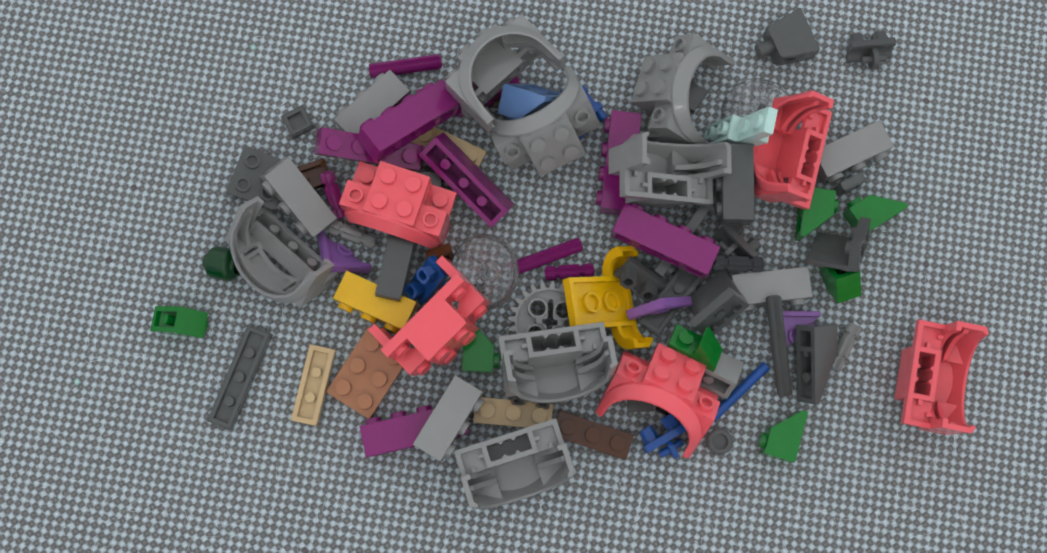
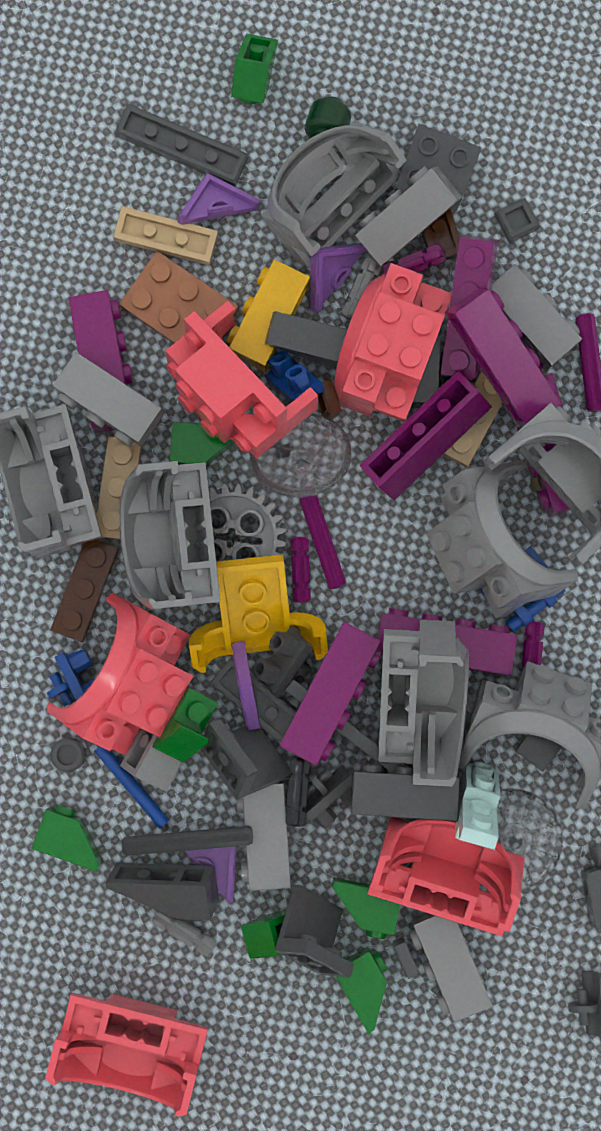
camera: 95 degrees right, 5 degrees up
(284, 346) = (215, 200): none -> medium lavender tile
(524, 99) = (531, 516): medium blue slope -> none
(617, 102) = (533, 646): none -> magenta axle

